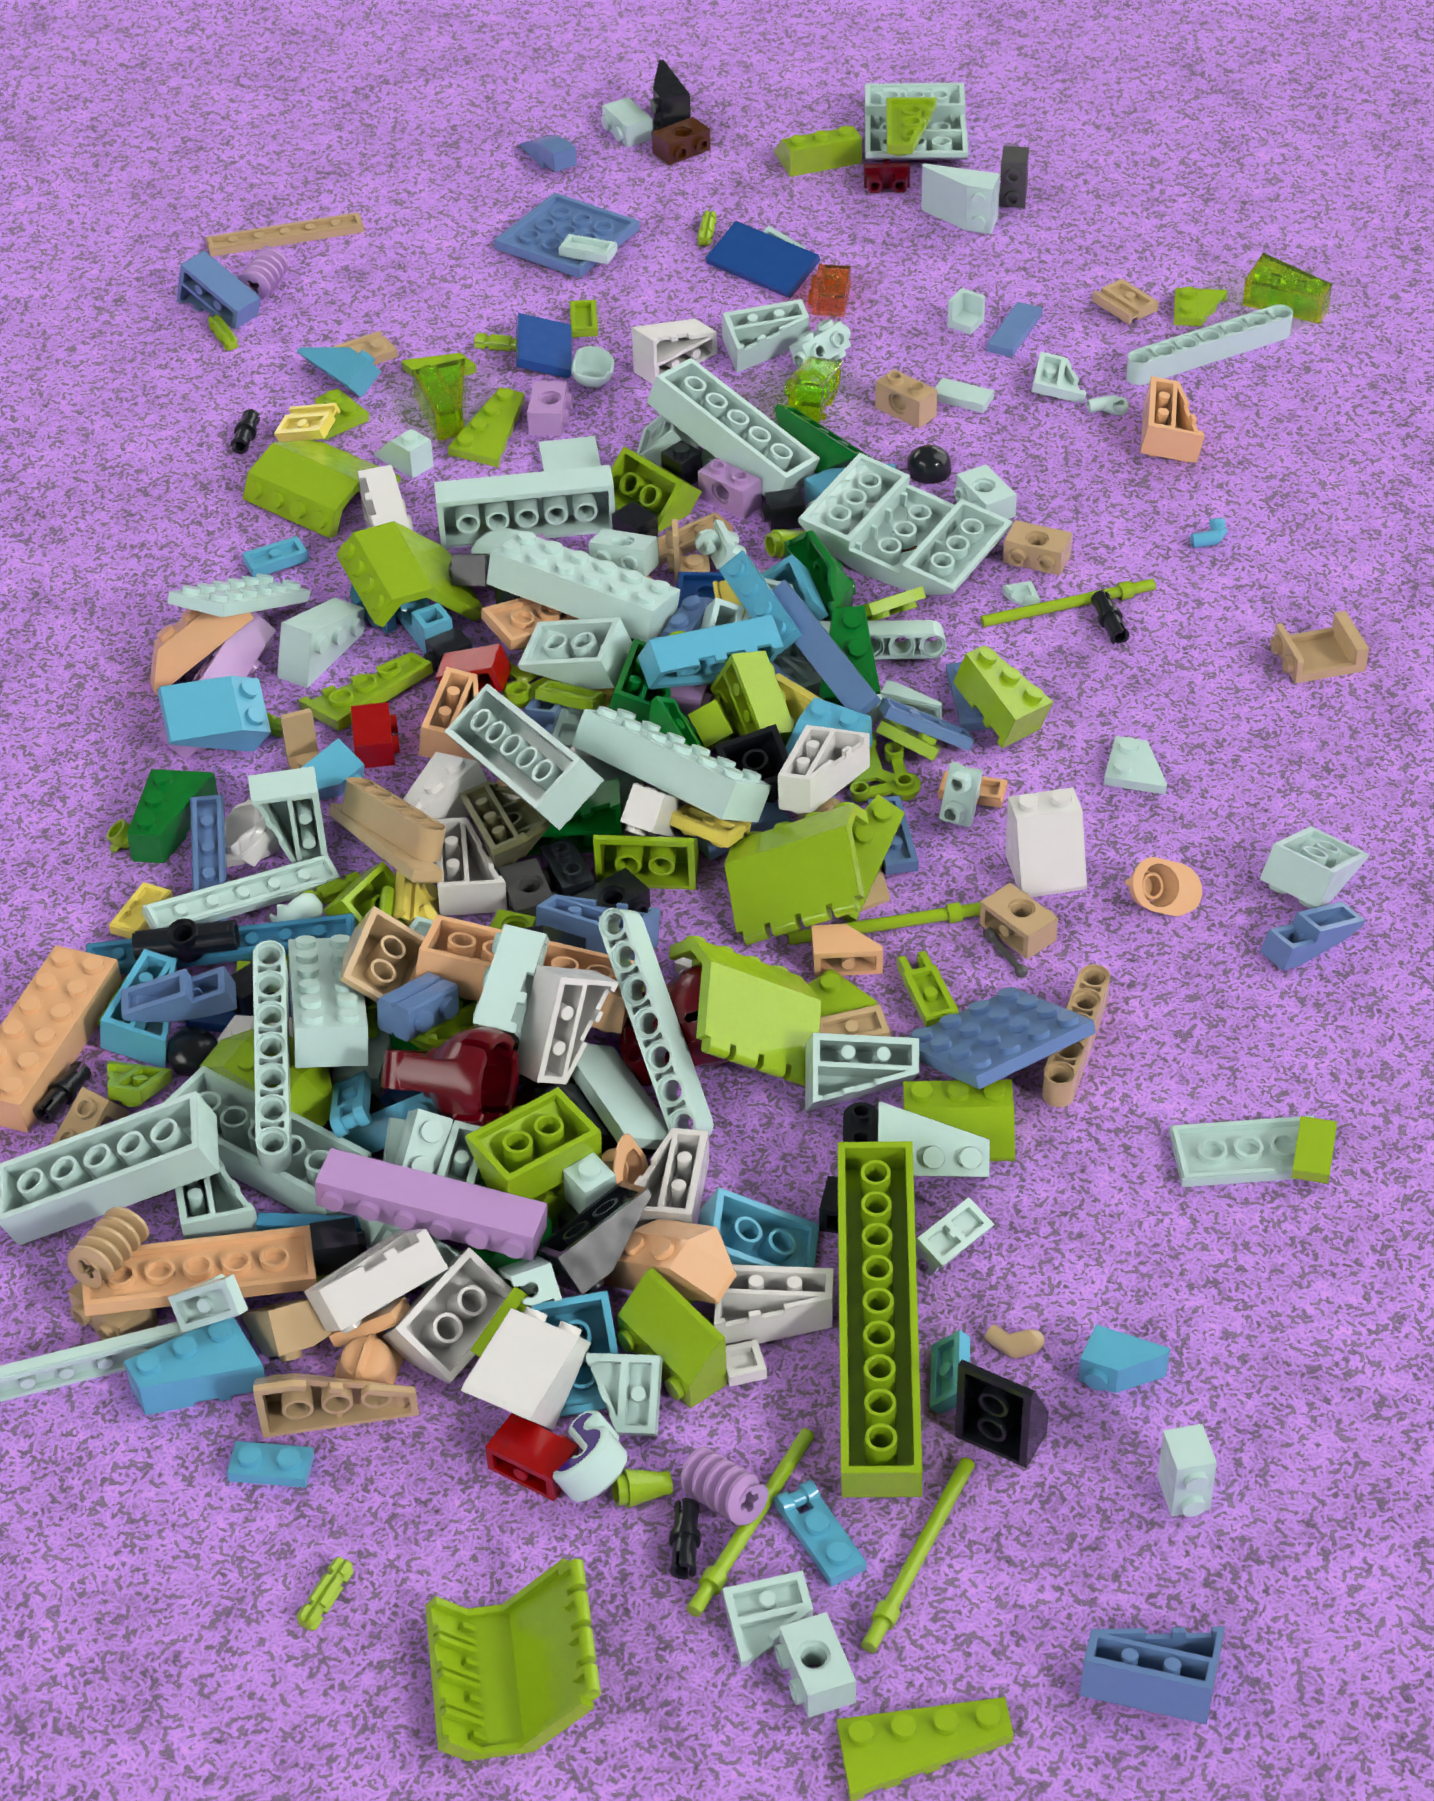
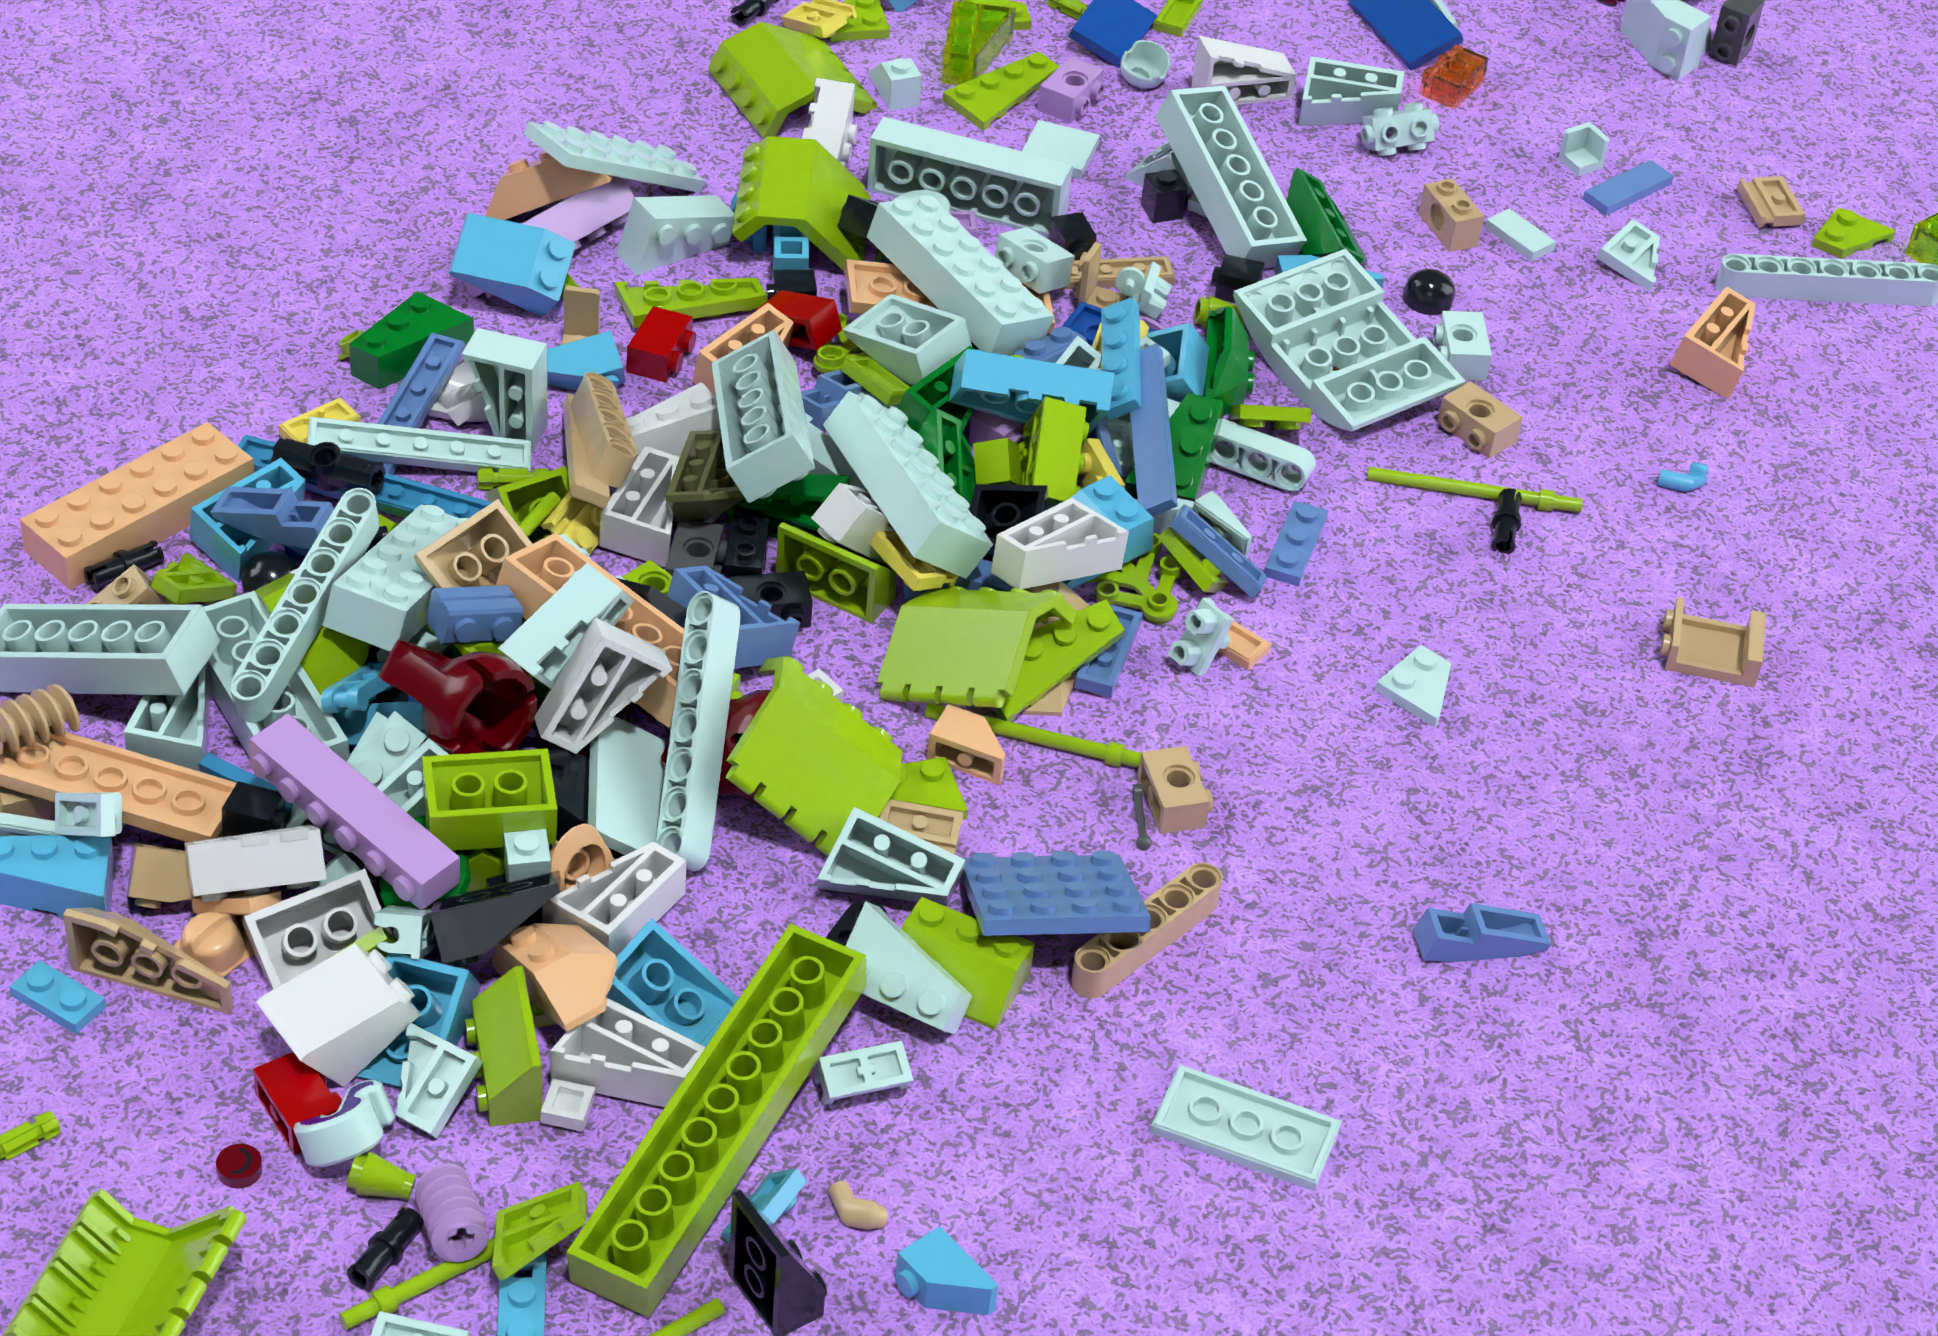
camera: 20 degrees right, 0 degrees up
(275, 556) = (695, 136): medium azure plate -> none
(301, 907) = (462, 480): light aqua hair -> none
(519, 1529) = (239, 1165): none -> dark red tile
(651, 487) = (1114, 207): lime slope -> none
(730, 488) = (1196, 236): lavender brick -> none
(800, 1465) = (536, 1226): none -> lime wing
(814, 386) = (1358, 168): clear neon green wedge -> none
(926, 989) = (1027, 819): lime hinge -> none
(1002, 695) = (1320, 555): lime wedge -> none
(1021, 592) = (1431, 459): light aqua tile -> none
(1046, 842) = (1252, 721): white slope -> none
(1110, 404) = (1674, 302): light aqua arm -> none
(1170, 884) = (1364, 819): light nougat piece -> none
(1311, 866) = (1533, 863): light aqua slope -> none
(1314, 1149) = (1311, 1155): lime tile -> none

